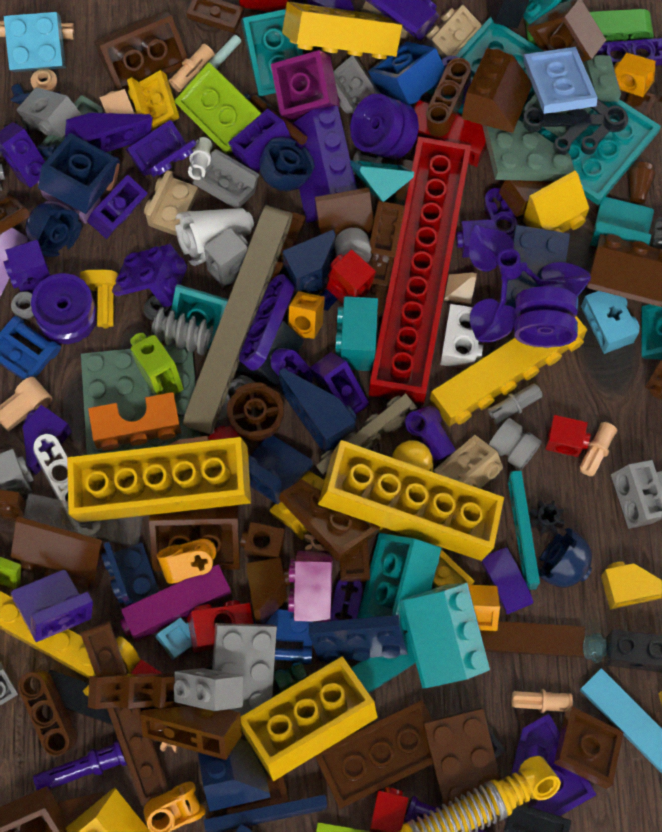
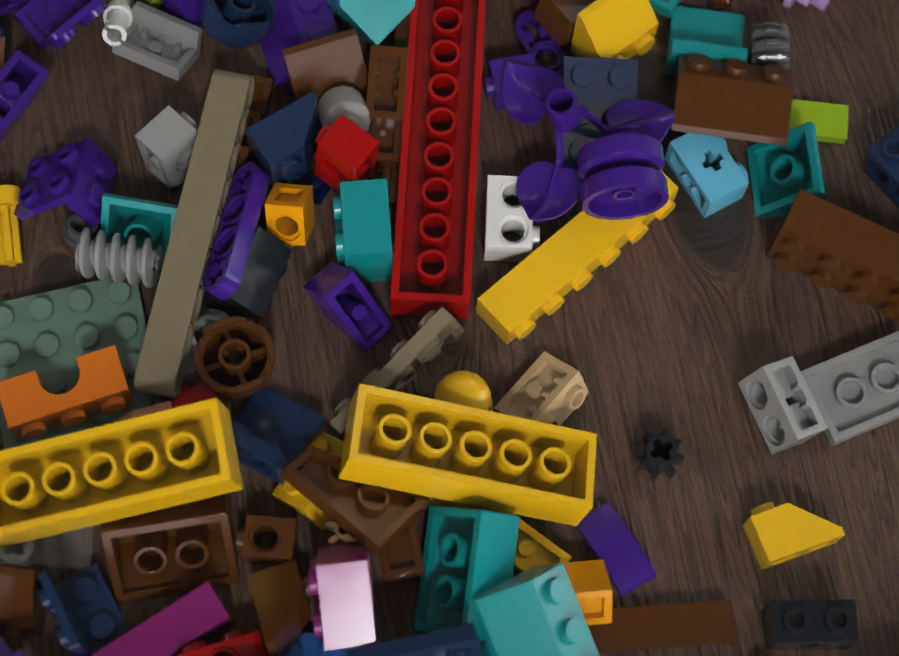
camera: 10 degrees left, 0 degrees up
(154, 360) = (81, 304): lime torso -> none
(170, 198) = (83, 84): tan bracket -> none
(186, 560) = (162, 581): light orange piece -> none
(201, 227) = (131, 108): white cone -> none
(295, 363) = (276, 299): dark purple beam -> none
(318, 410) = (324, 345): dark blue slope -> none
(339, 603) = (385, 609): dark purple beam -> none
(431, 432) = (484, 356): dark purple piece -> none
(460, 288) = (498, 152): tan slope -> none
(515, 403) = (593, 301): light grey axle -> none
(515, 444) = (601, 357): light grey wheel -> none
(523, 530) = (628, 475): teal tile -> none
(566, 560) = (693, 510): dark blue cylinder -> none
(567, 436) = (671, 337): red brick -> none
(594, 647) = (749, 627): clear light blue plate -> none
(598, 448) = (715, 349): light nougat axle -> none

